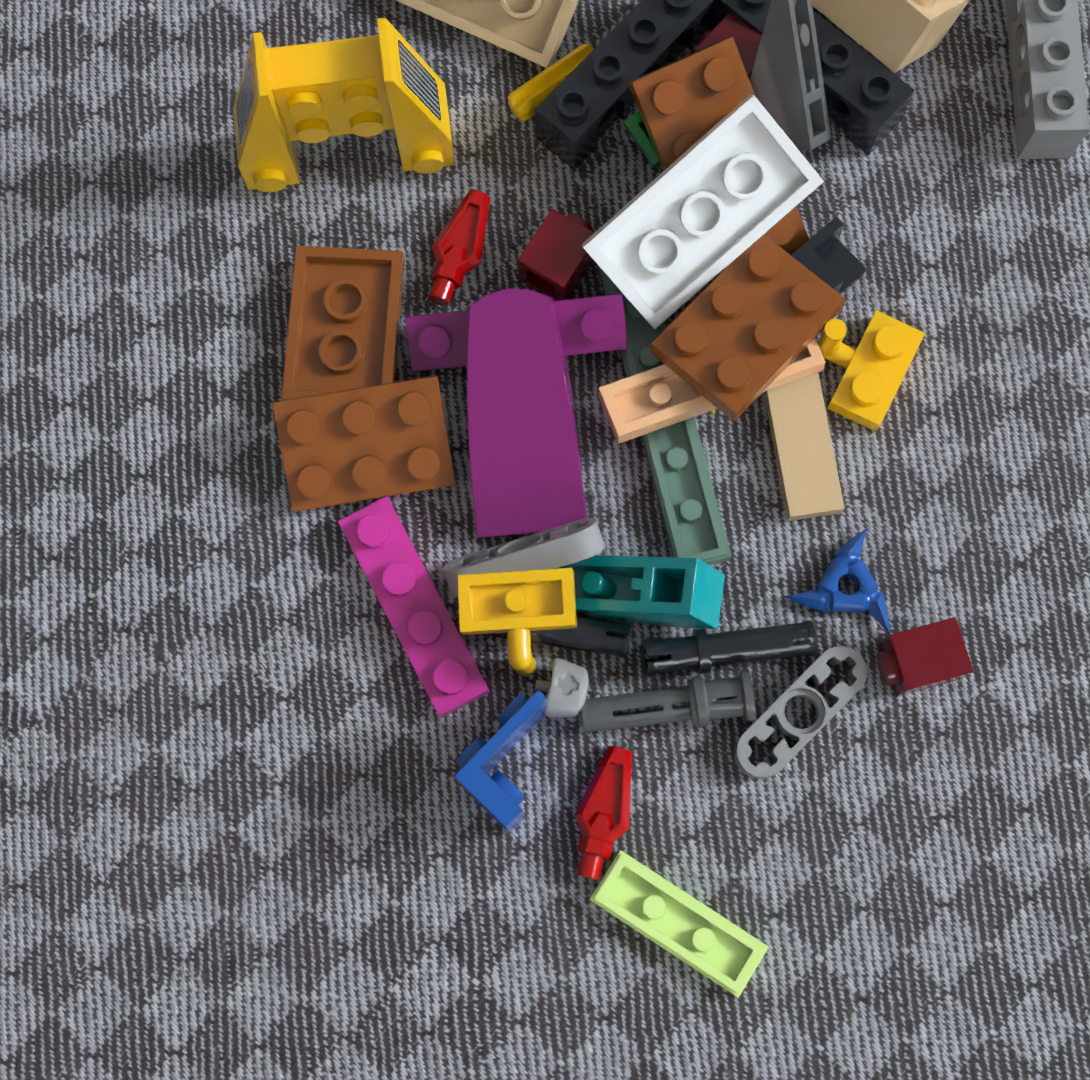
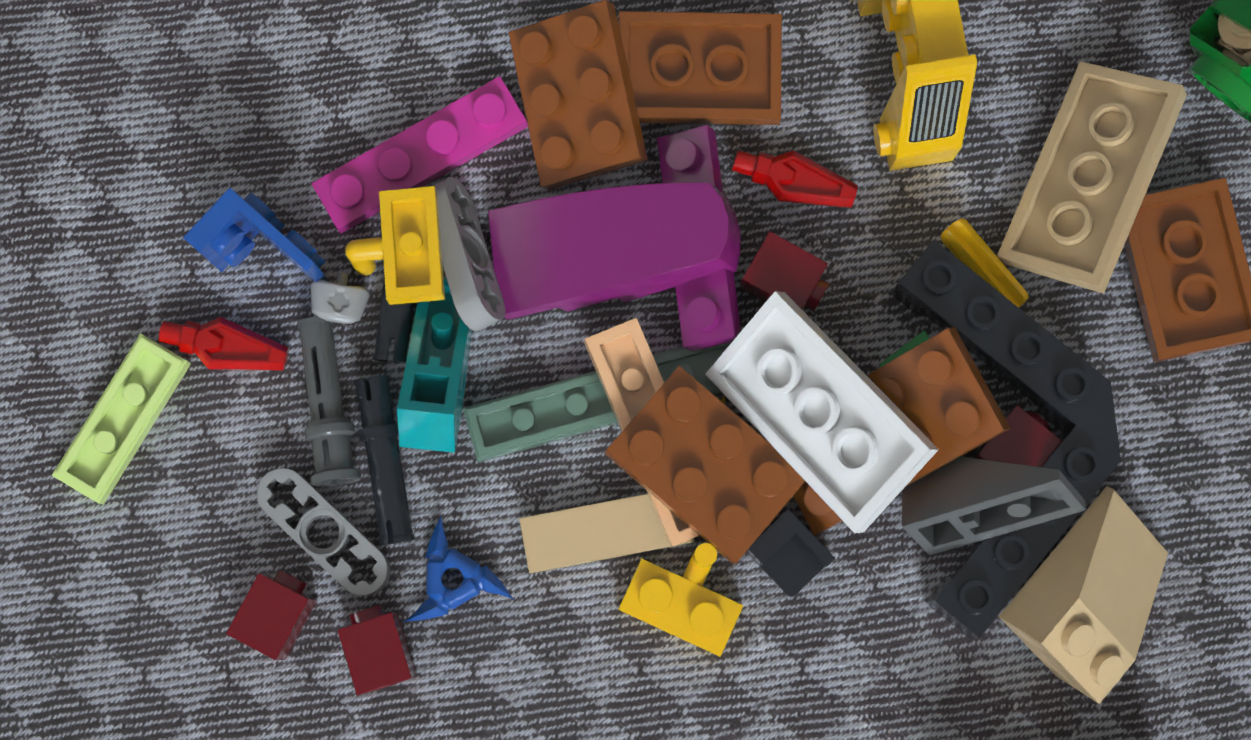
camera: 85 degrees right, 5 degrees up
(887, 762) = (272, 614): none -> dark red brick

